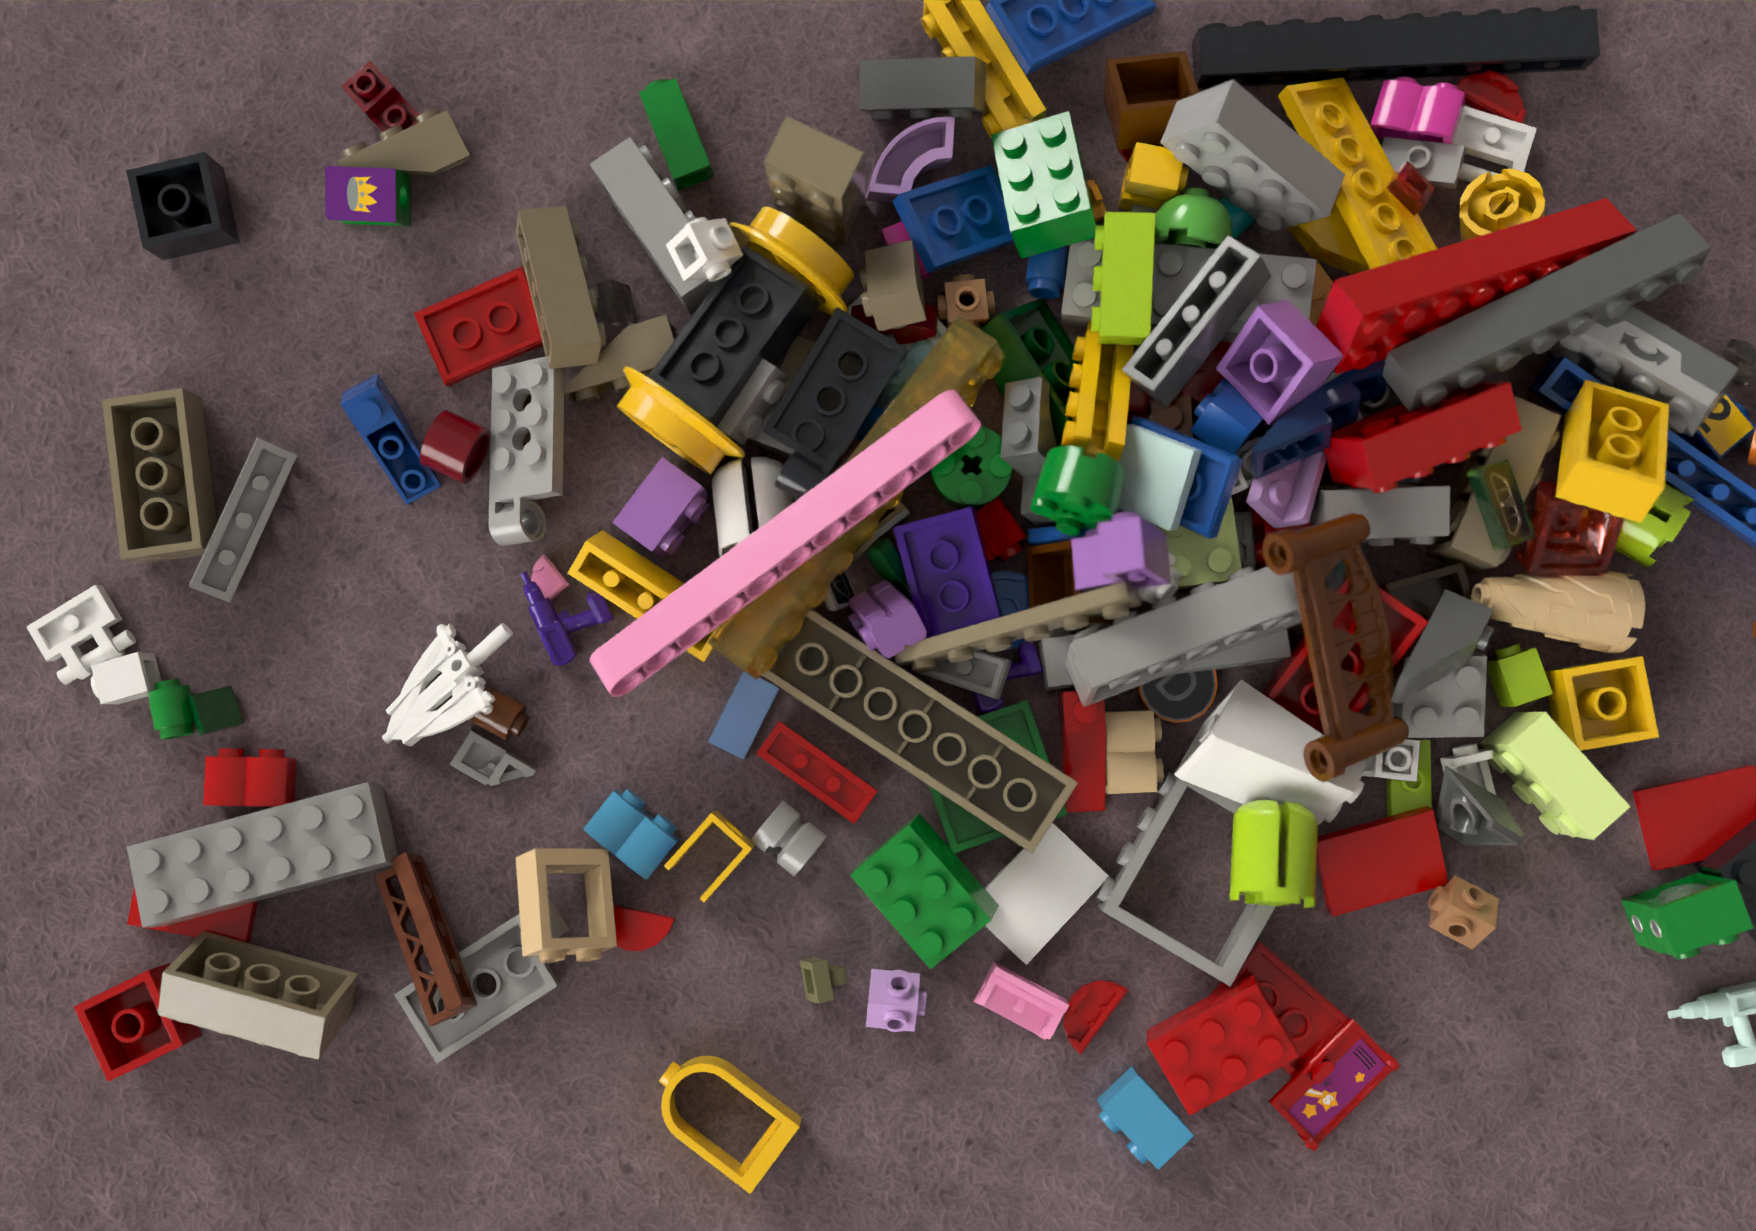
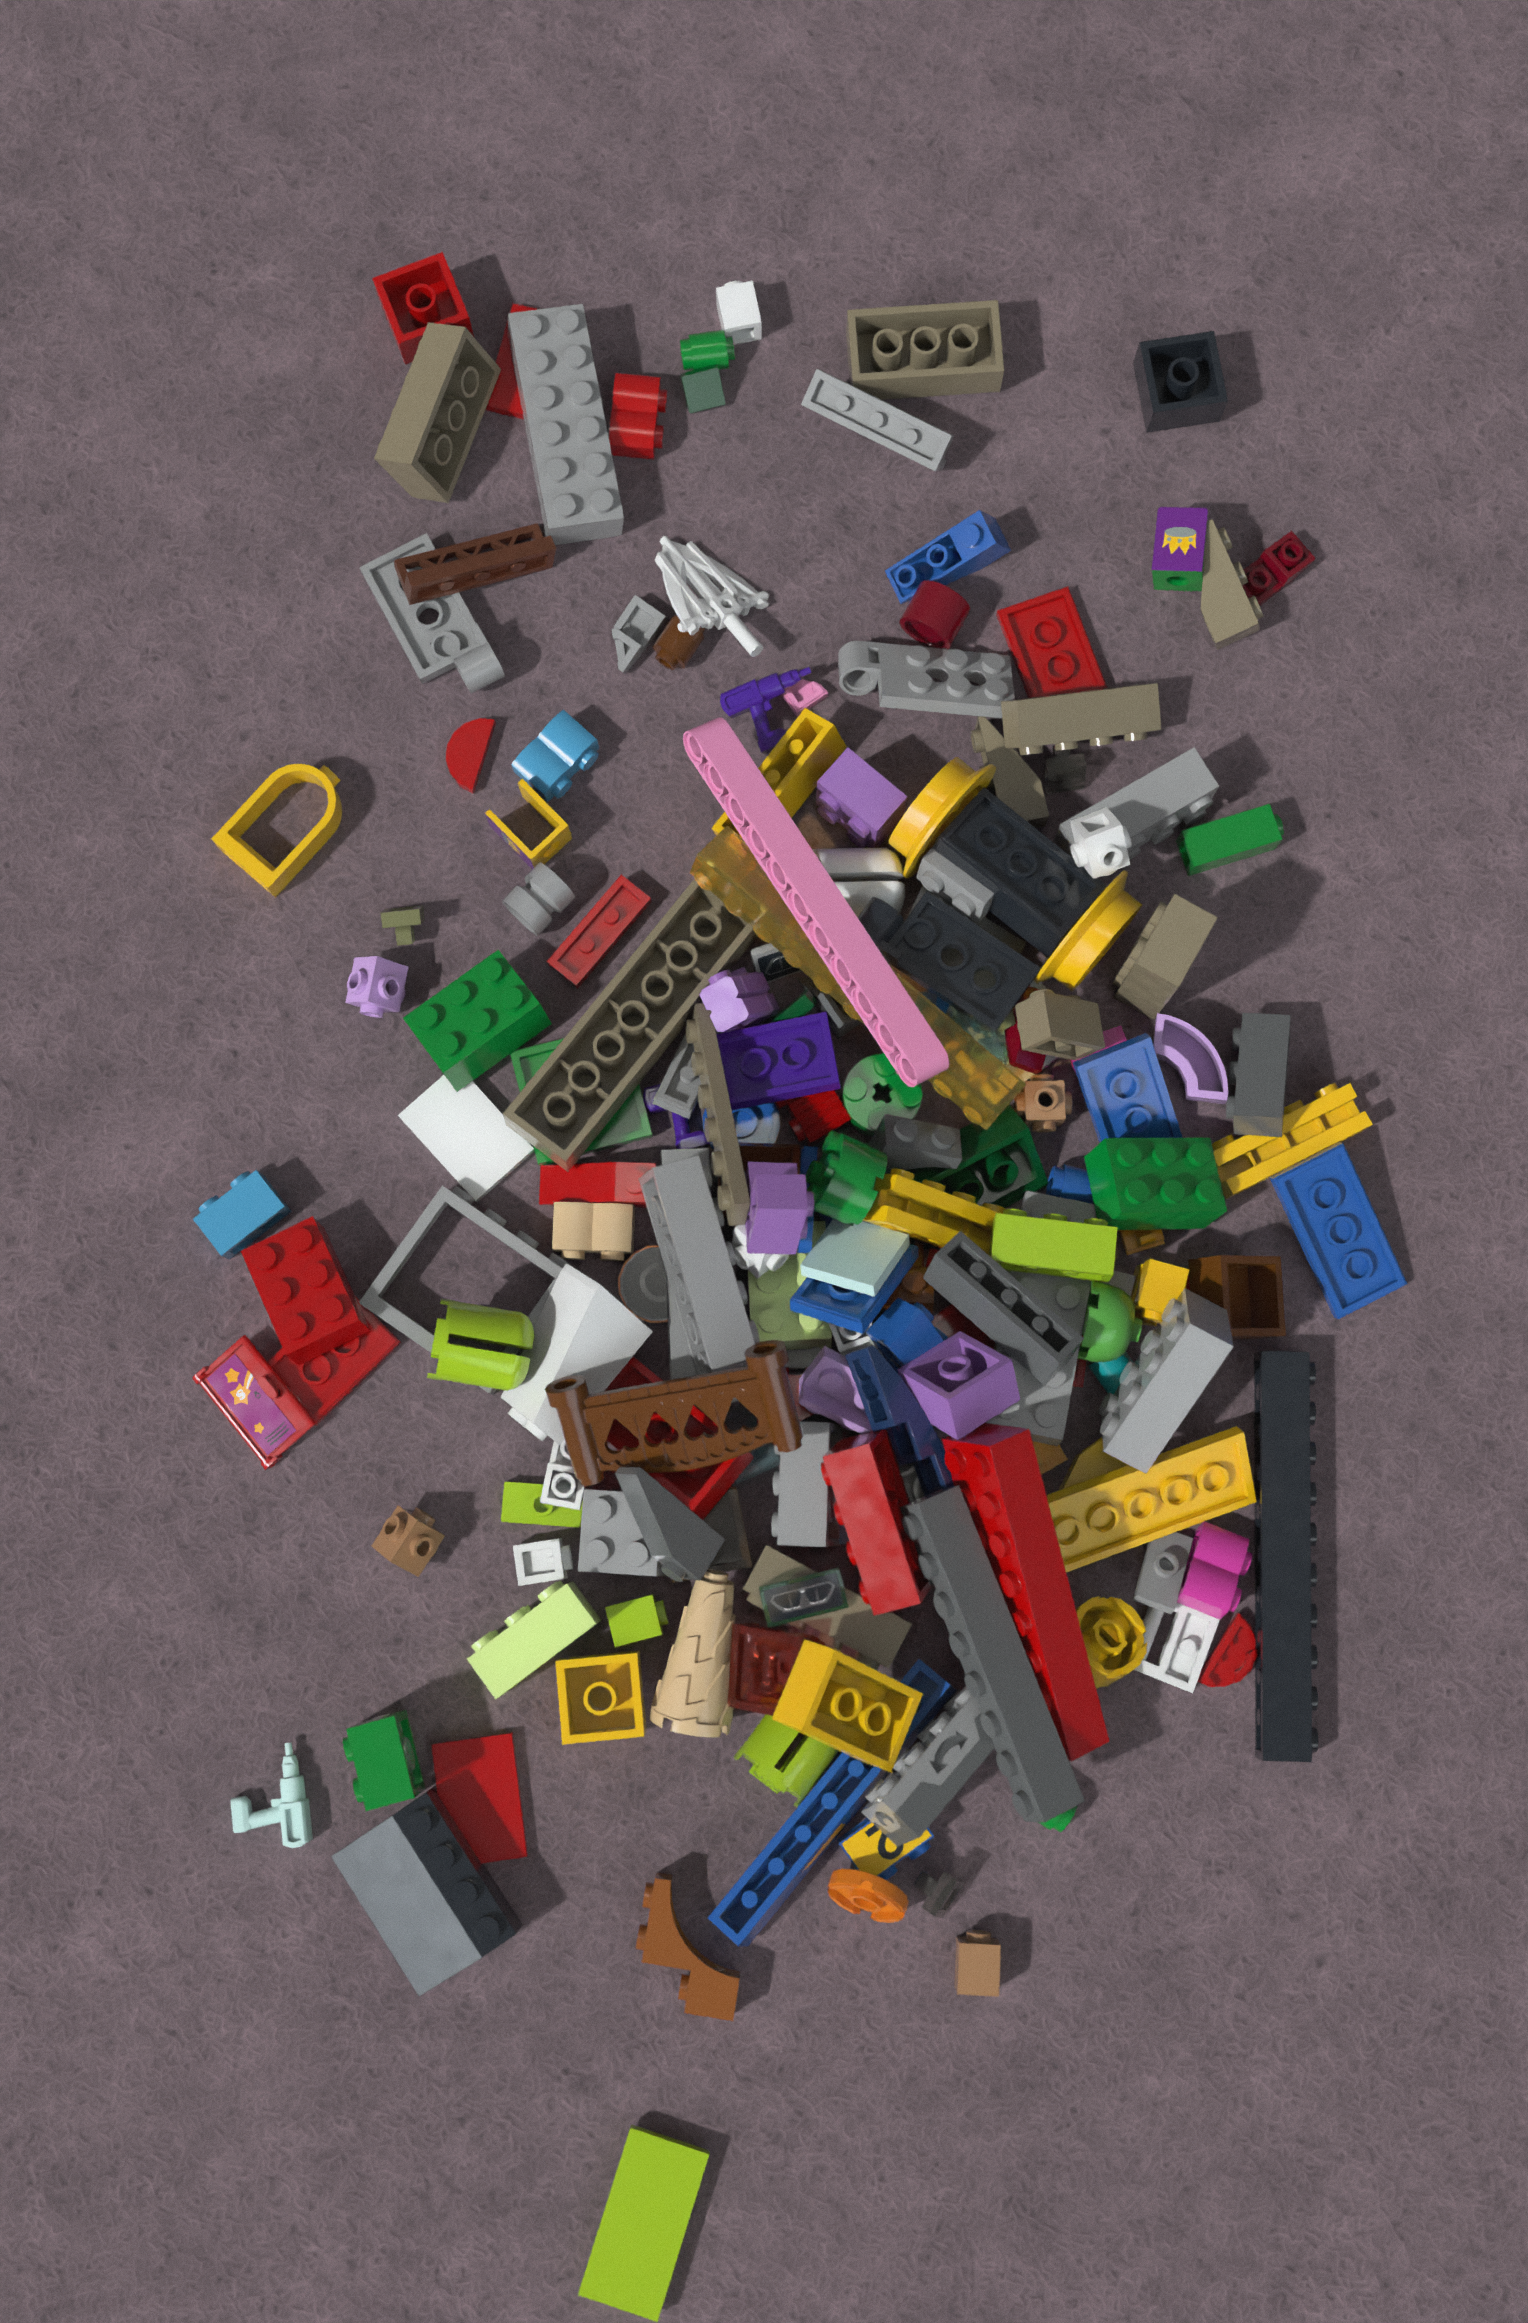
camera: 90 degrees right, 5 degrees down
(75, 623) = (793, 269): white plate -> none
(534, 903) = (495, 655): tan window -> none
(744, 715) = (656, 866): medium blue tile -> none
(1021, 1001) = (365, 1107): bright pink hinge -> none
(1089, 1010) = (349, 1173): red tile -> none
(1380, 861) = (465, 1465): red tile -> none
(1410, 187) = (1134, 1550): clear red tile -> none
(1474, 814) = (505, 1557): dark grey slope -> none

